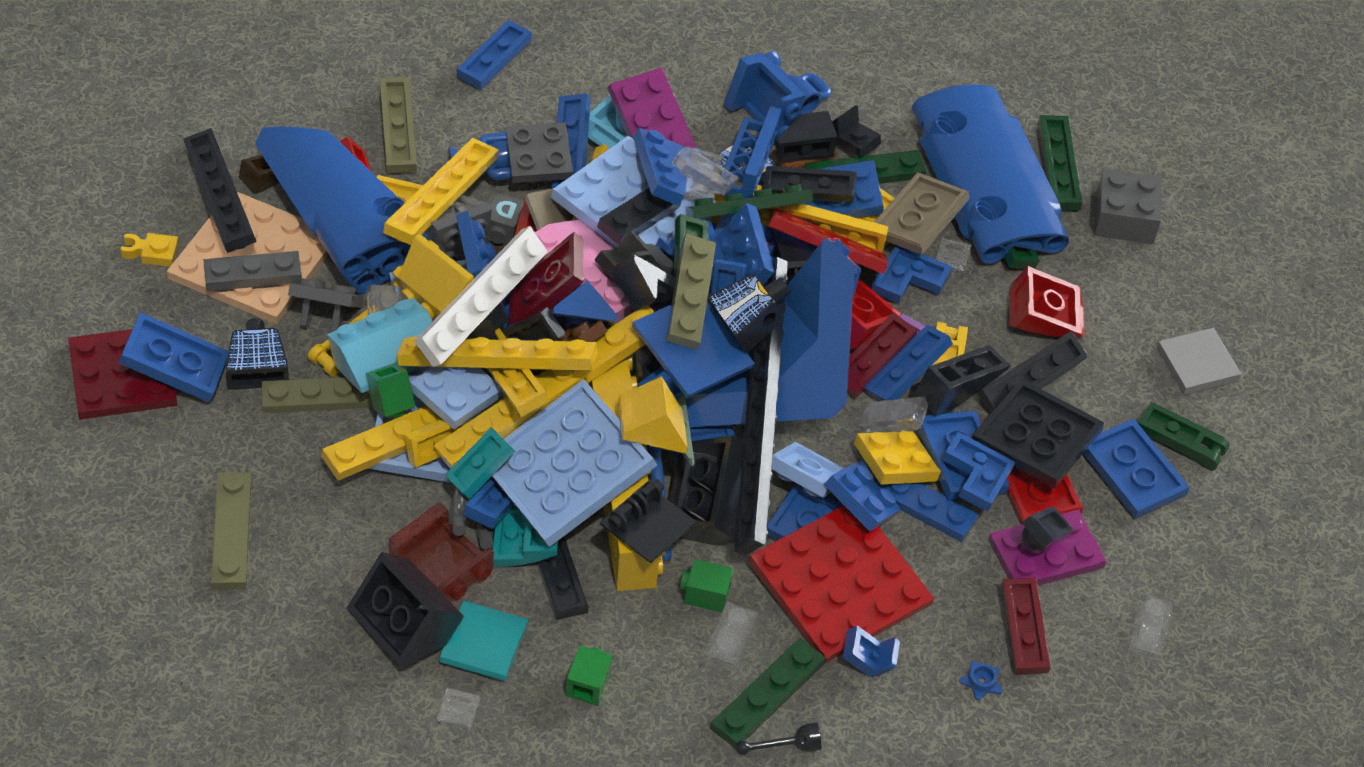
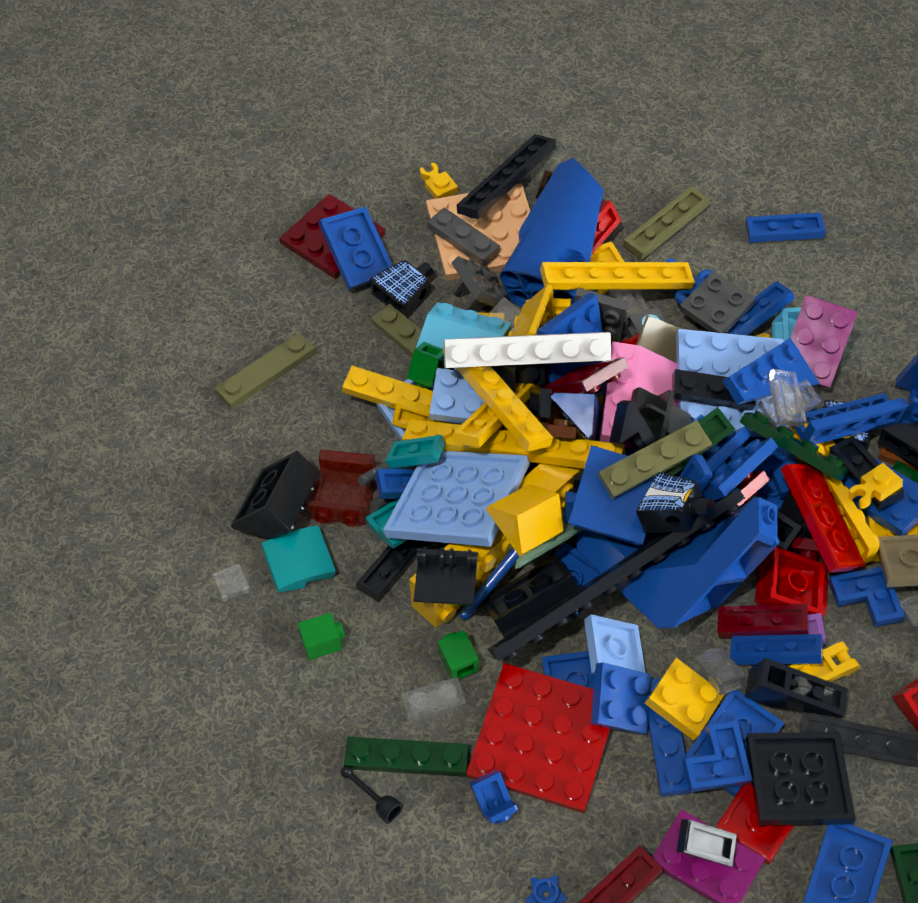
camera: 60 degrees right, 5 degrees up
(836, 183) = (876, 483): none -> yellow plate

